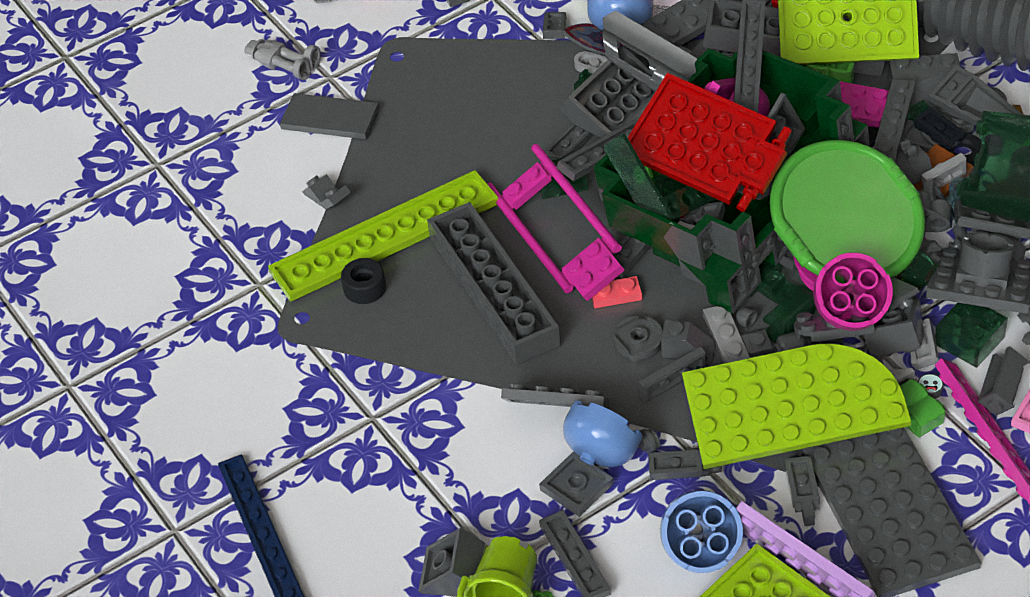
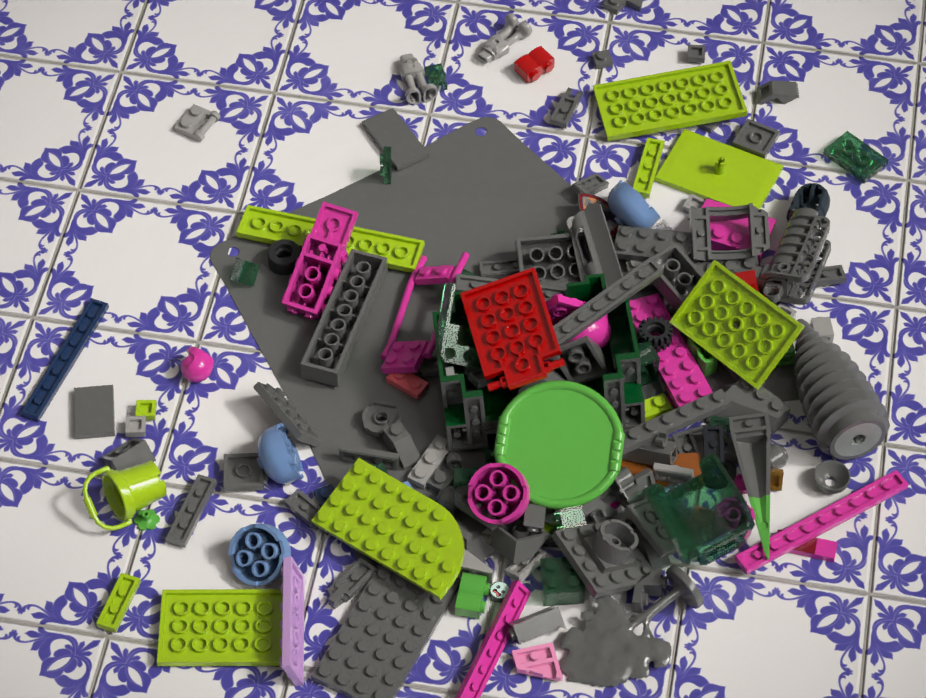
camera: 40 degrees right, 5 degrees up
(110, 244) = (192, 121): none -> light grey plate
(299, 40) = (436, 75): none -> clear green plate
(324, 191) = (333, 184): dark grey slope -> none
(342, 321) = (244, 272): none -> clear green panel
(358, 556) = (94, 411): none -> dark grey tile
(360, 135) = (386, 161): none -> clear green plate
(409, 511) = (146, 408): none -> lime plate
(411, 432) = (197, 365): none -> dark pink helmet
(416, 251) = (320, 262): none -> dark pink wedge
(419, 533) = (135, 426): none -> light grey plate
(650, 441) = (308, 482): dark grey plate -> none
(677, 439) = (323, 494): none -> dark blue plate

